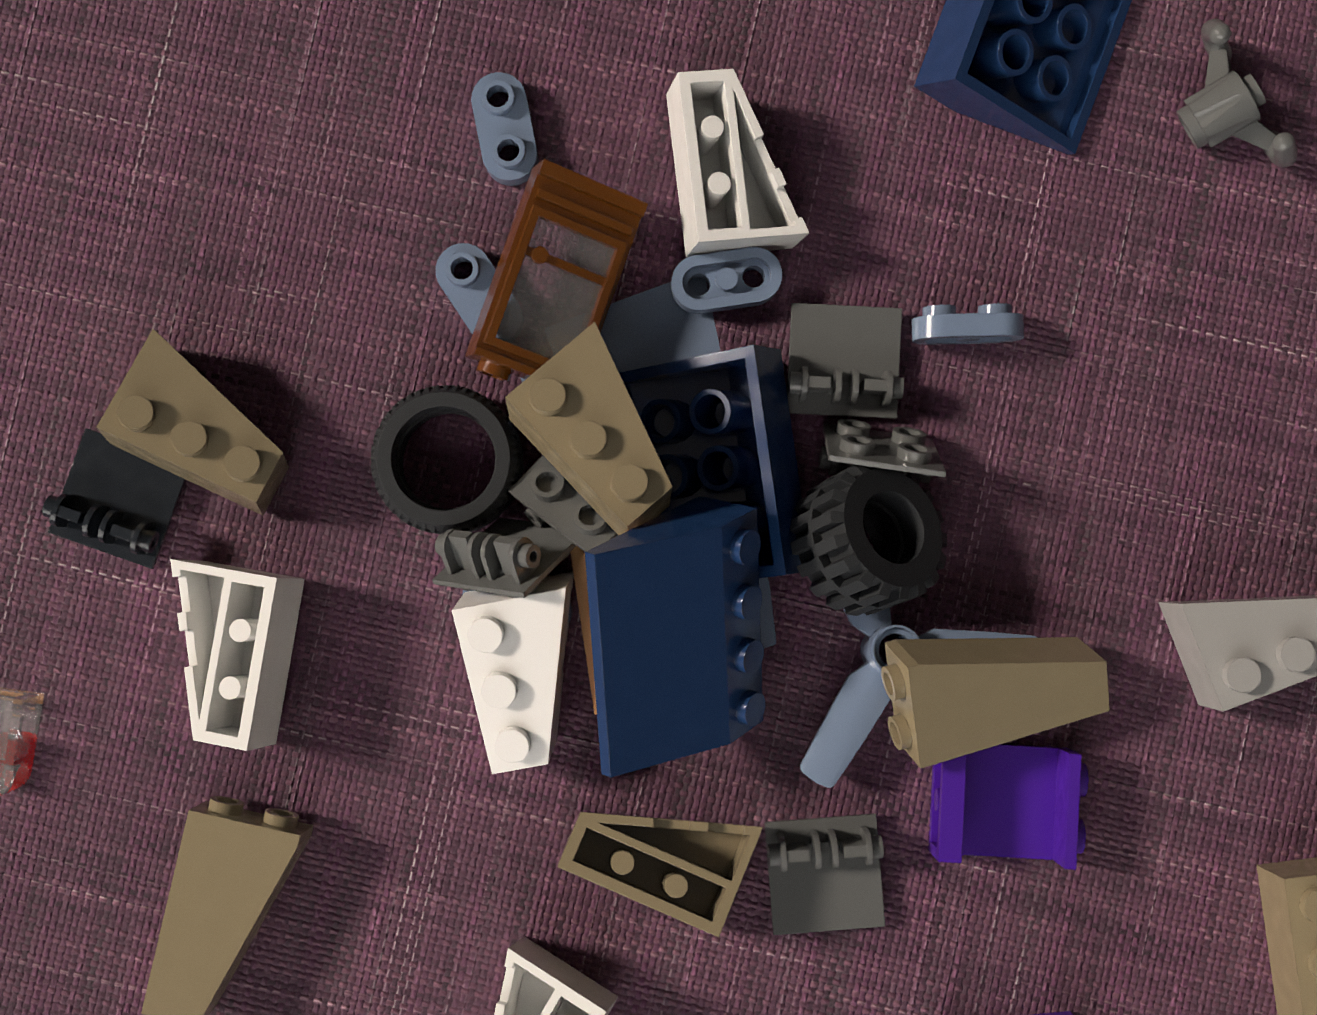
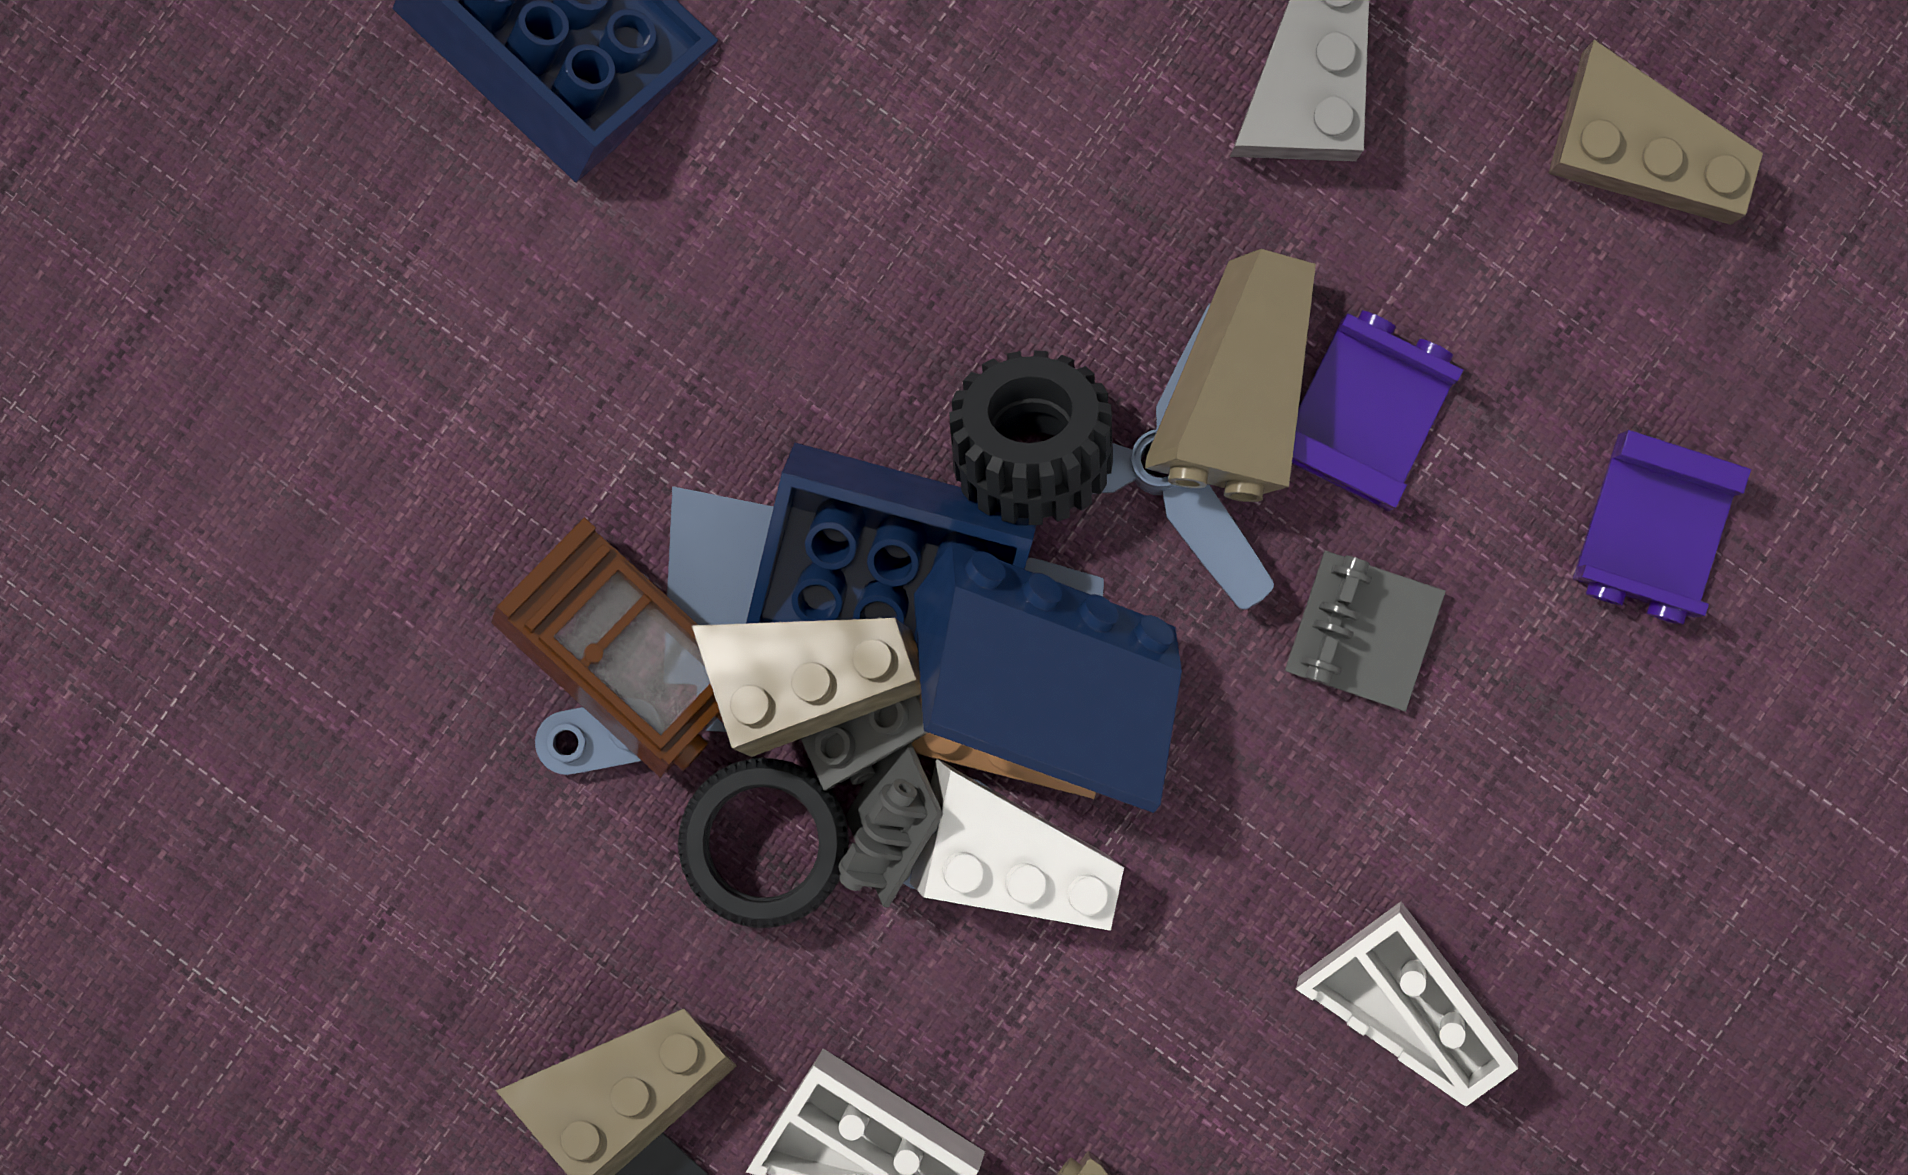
camera: 65 degrees left, 0 degrees up
(504, 127) = (431, 634): sand blue plate -> none
(664, 863) = (1278, 794): dark tan wedge -> none
(723, 170) = (582, 423): white wedge -> none
(725, 280) = (696, 468): sand blue plate -> none
(844, 360) = (834, 379): dark grey hinge -> none
(903, 450) = (955, 363): dark grey hinge -> none
(990, 325) = (842, 259): sand blue plate -> none

